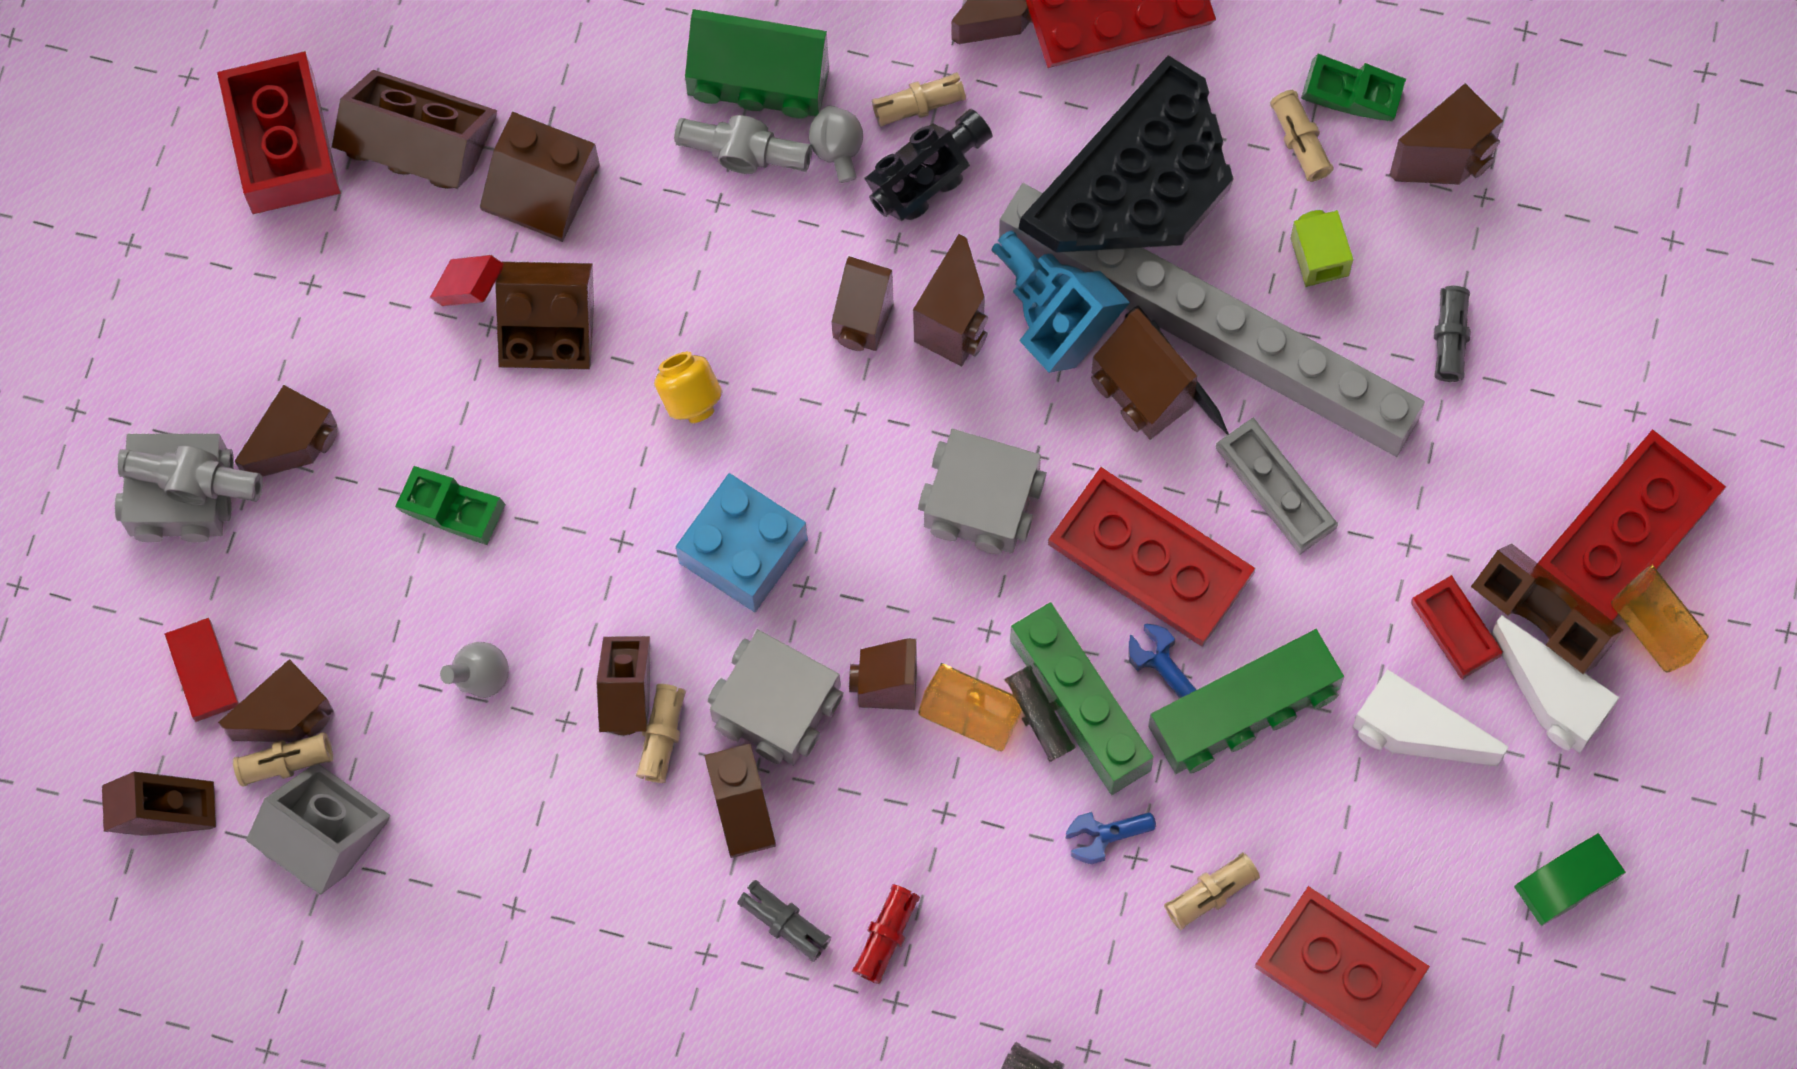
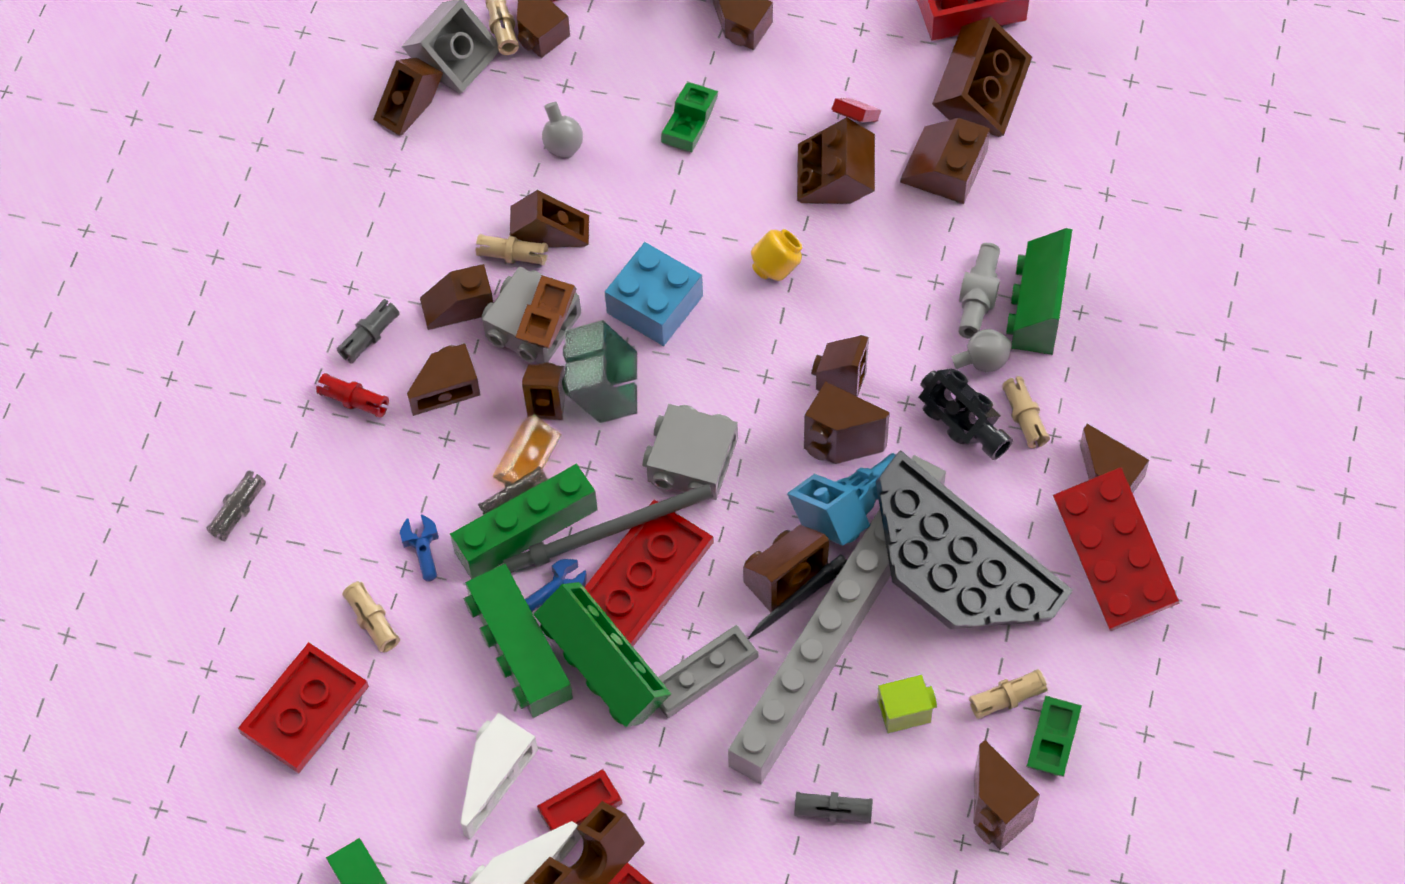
camera: 90 degrees right, 10 degrees down
(400, 884) = (407, 94): none -> reddish brown slope
(790, 667) = (546, 313): none -> dark orange slope
(850, 605) = (596, 362): none -> piece
(865, 810) = (444, 380): none -> reddish brown slope
(1120, 680) = (541, 553): none -> dark grey bar
(1273, 593) = (601, 654): none -> green brick

